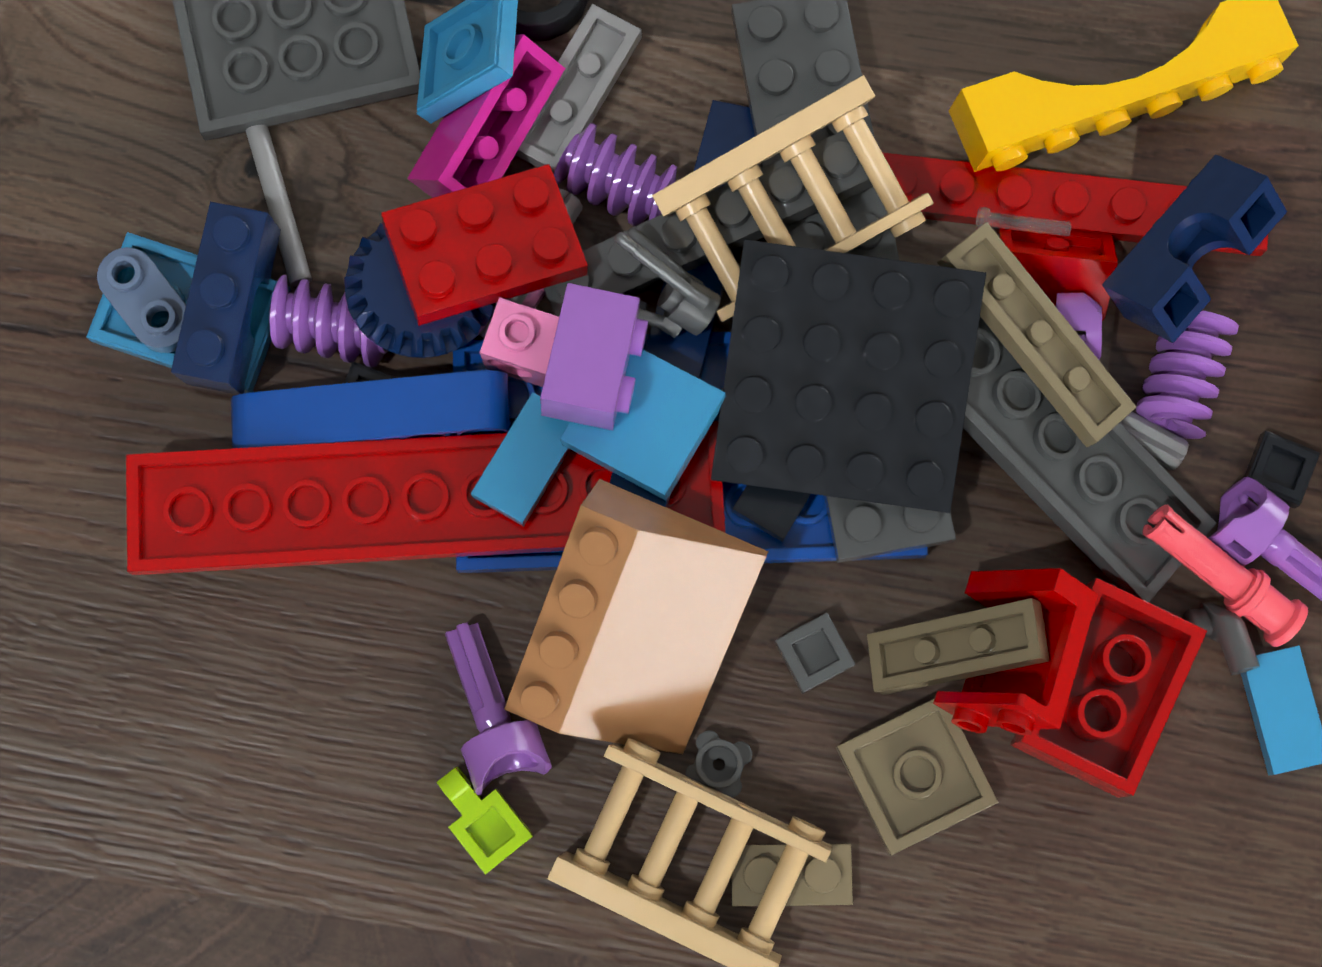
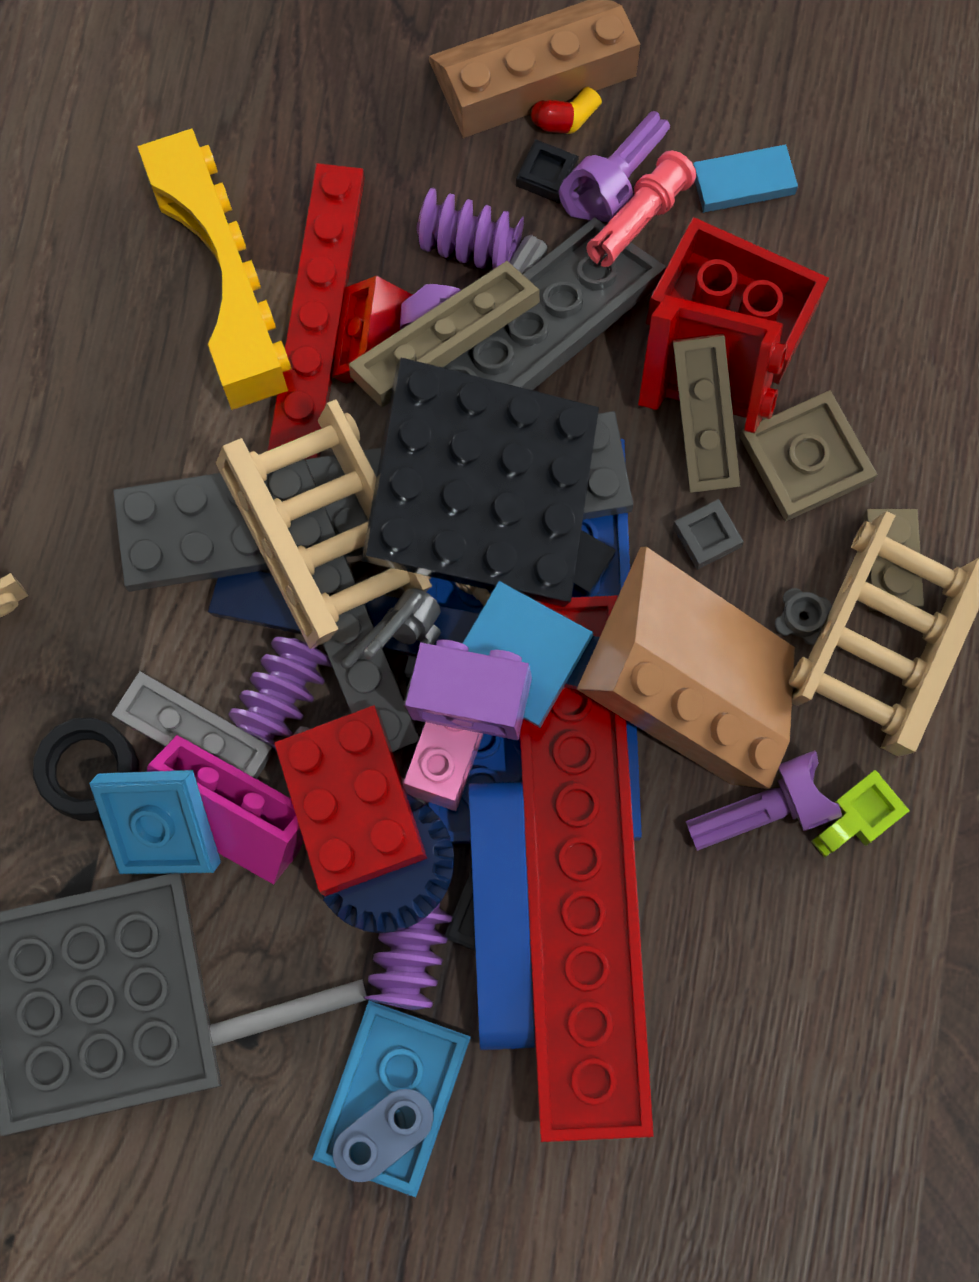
camera: 90 degrees left, 5 degrees down
(215, 329) = (389, 1049): dark blue arch -> none
(523, 464) = (552, 764): dark azure tile -> none
(1022, 223) = (330, 383): clear piece -> none
(1216, 210) = (335, 192): dark blue arch -> none
(1227, 630) = (681, 213): dark grey arm -> none

